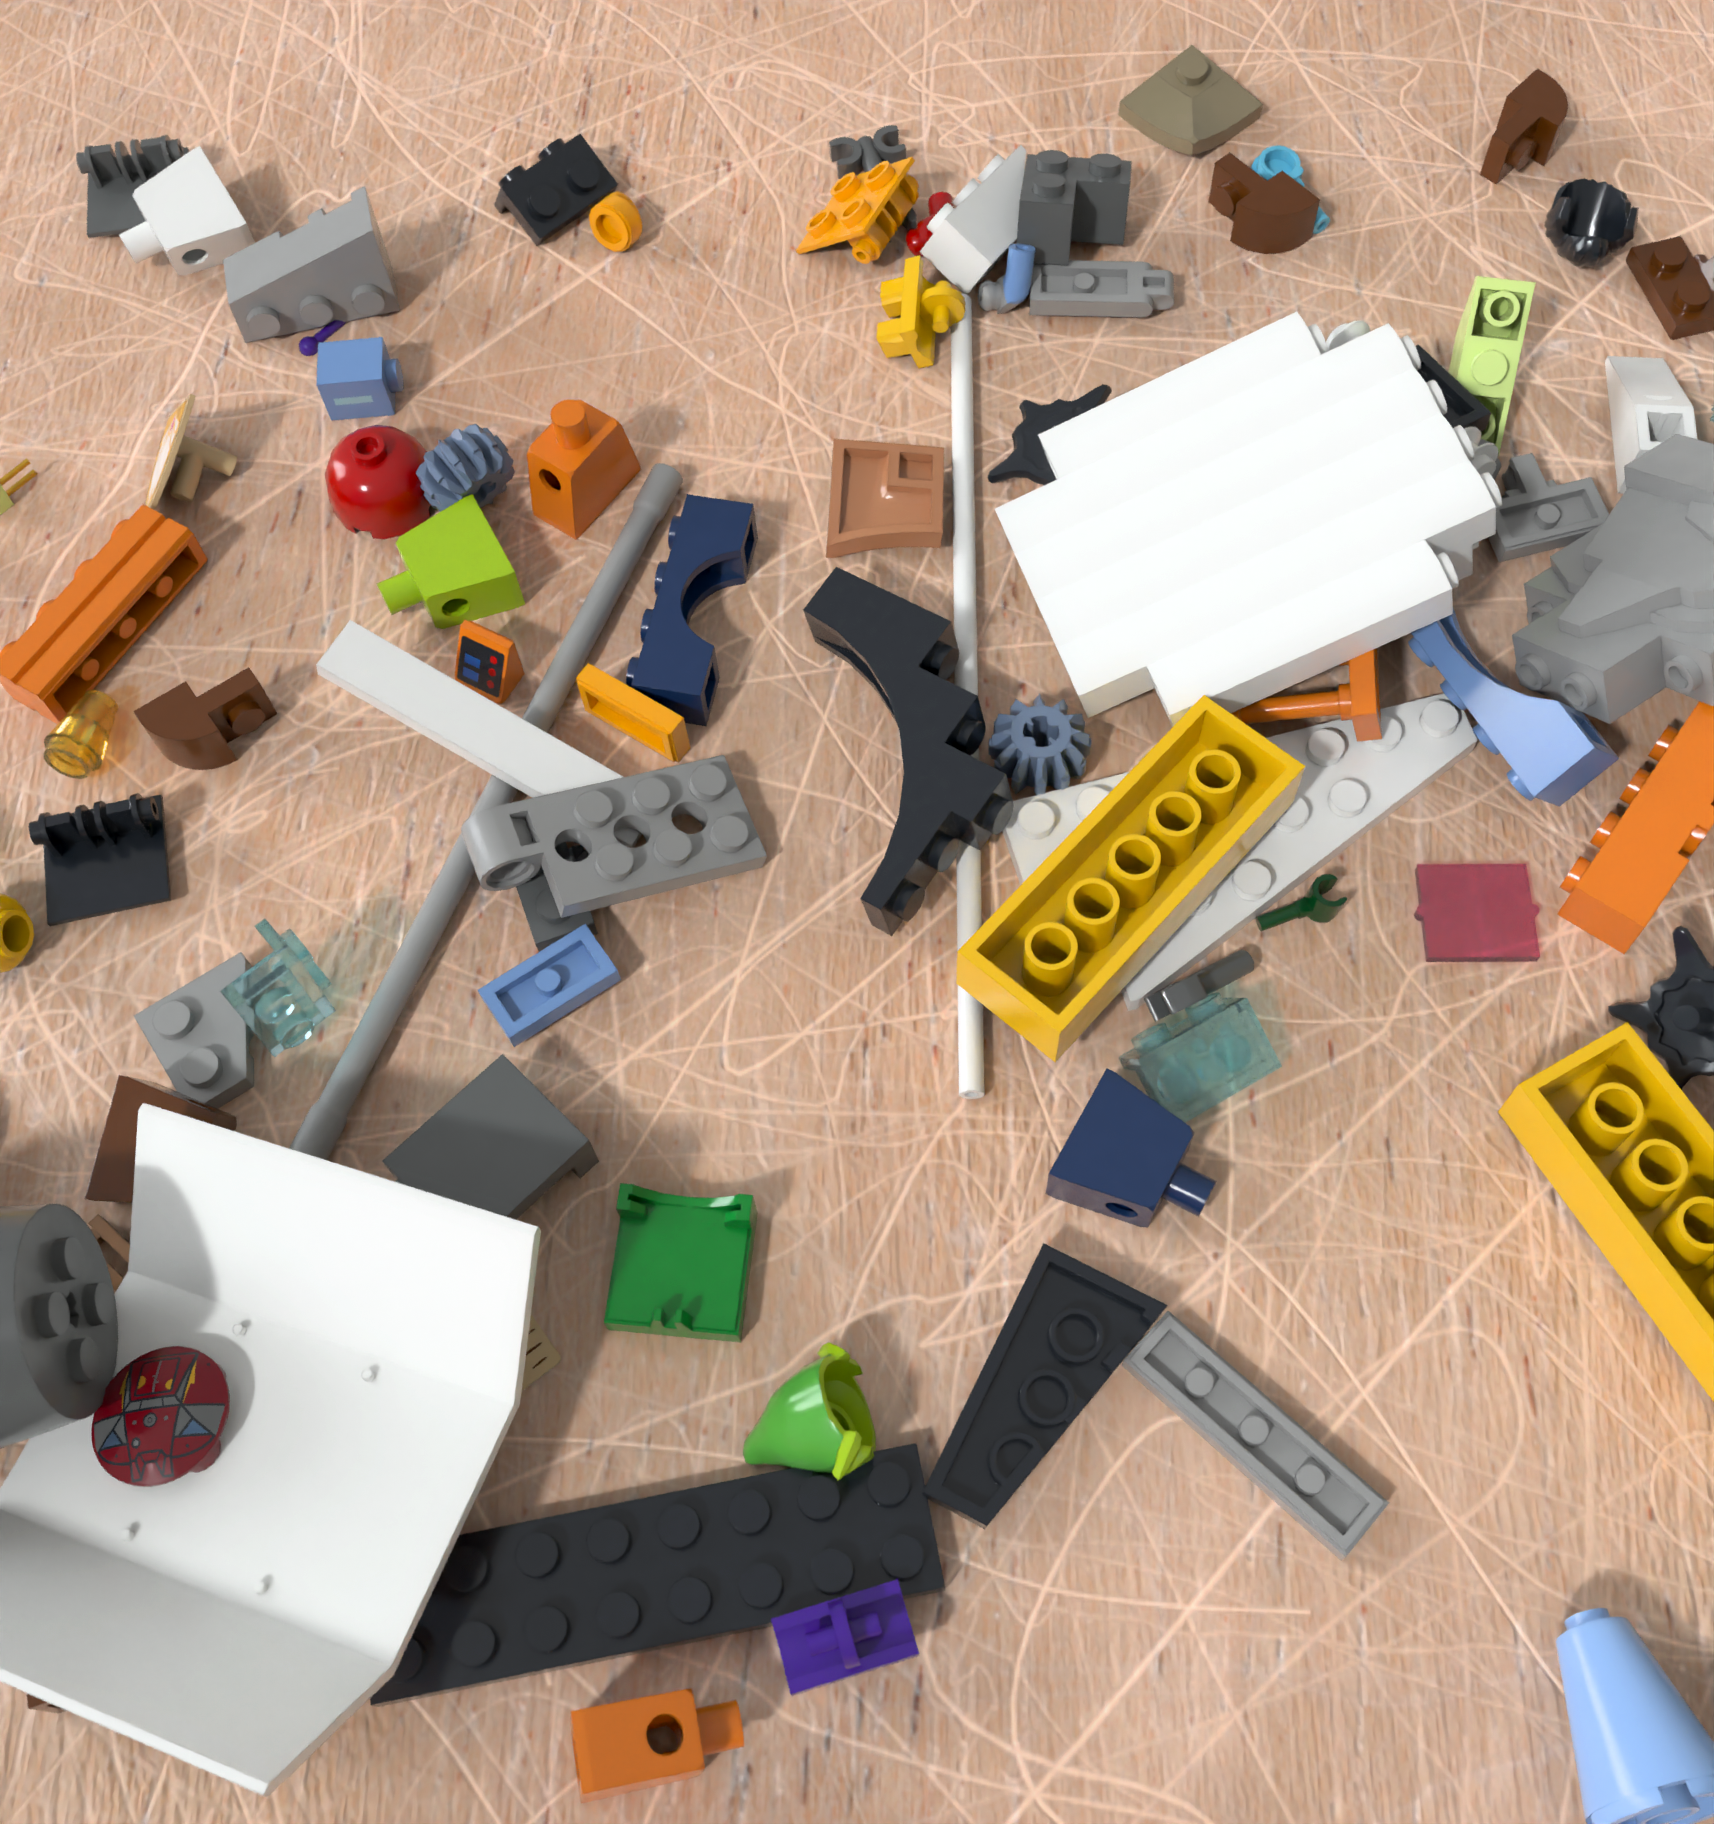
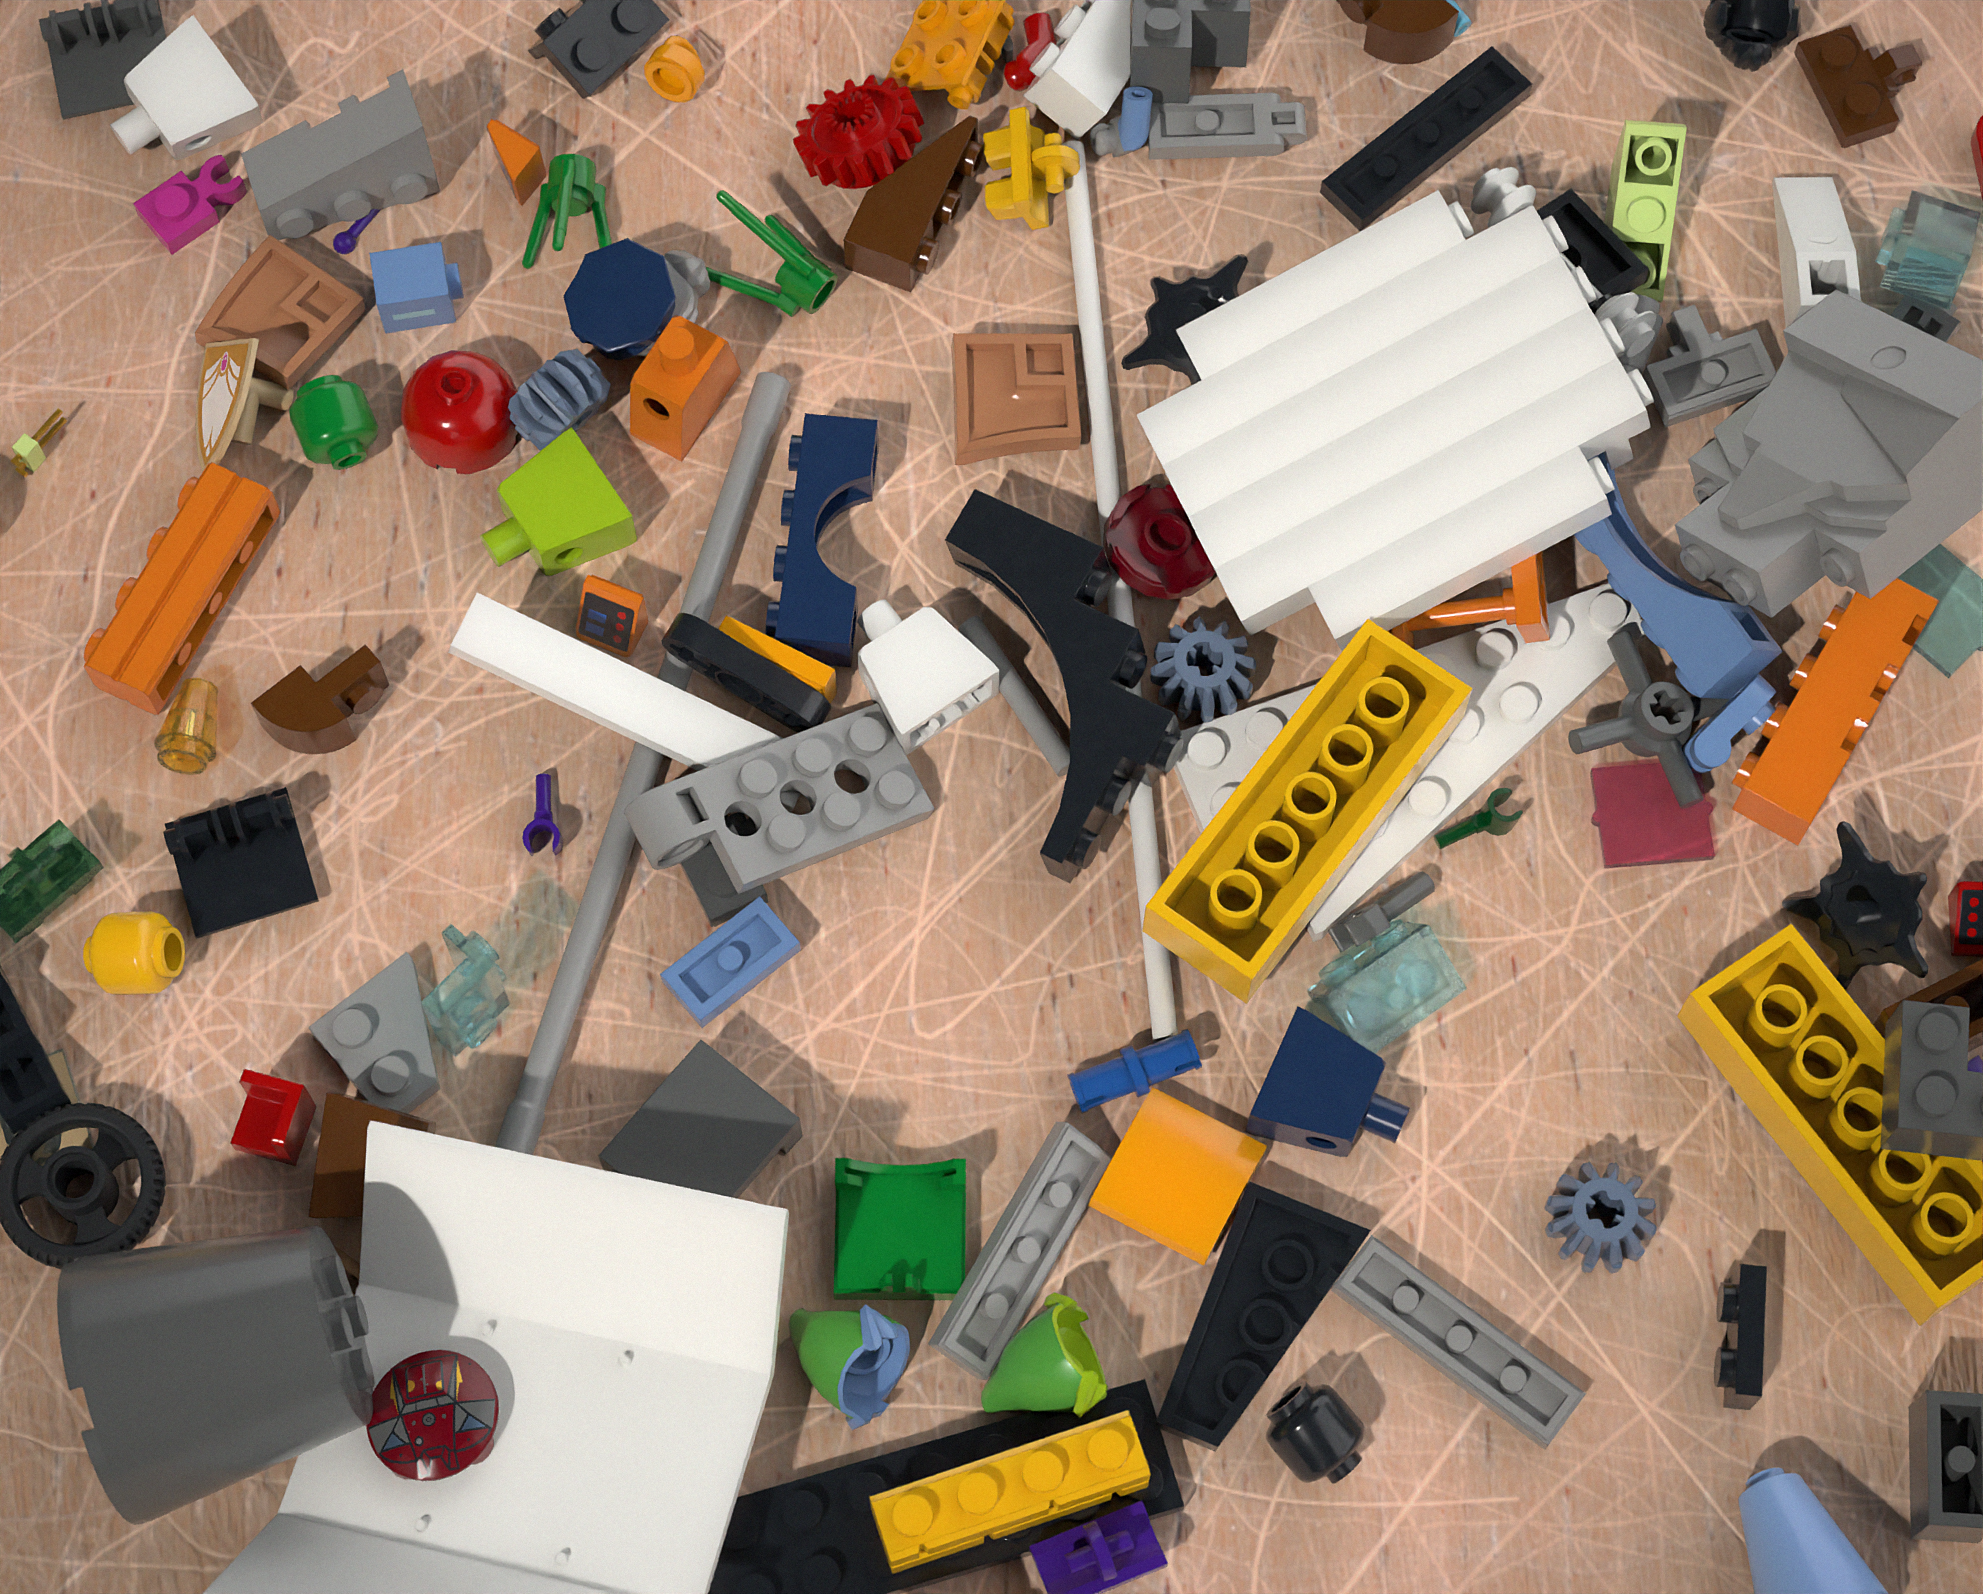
camera: 10 degrees left, 5 degrees up
(79, 1100) = (273, 1118): none -> red panel
(178, 311) = (185, 209): none -> dark pink plate
(239, 393) = (286, 306): none -> nougat plate
(263, 482) = (333, 422): none -> green head
(393, 842) = (542, 817): none -> dark purple hand
(468, 282) = (518, 159): none -> orange slope
(509, 313) = (569, 193): none -> green plant
(538, 378) = (630, 295): none -> dark blue piece
(599, 716) = (745, 673): none -> black beam
(612, 1395) = (851, 1358): none -> hat
(703, 390) = (802, 277): none -> green plant
(750, 1557) = (1010, 1491): none -> yellow brick
(770, 275) = (859, 133): none -> red gear
(770, 731) = (922, 672): none -> white torso
(800, 1296) = (1021, 1251): none -> light grey tile
(803, 341) = (904, 211): none -> reddish brown slope
(857, 755) = (1020, 697): none -> light grey bar
(937, 1122) = (1134, 1071): none -> blue pin
(970, 1232) = (1177, 1176): none -> light orange slope
(1005, 632) = (1155, 544): none -> dark red tile
(1093, 1520) = (1315, 1433): none -> black head
(1309, 289) = (1425, 138): none -> black plate
(1423, 1293) = (1590, 1236): none -> sand blue gear
(1482, 821) = (1650, 721): none -> dark grey bar
(1546, 843) = (1744, 710): none -> medium blue plate
(1563, 1480) = (1740, 1364): none -> black plate

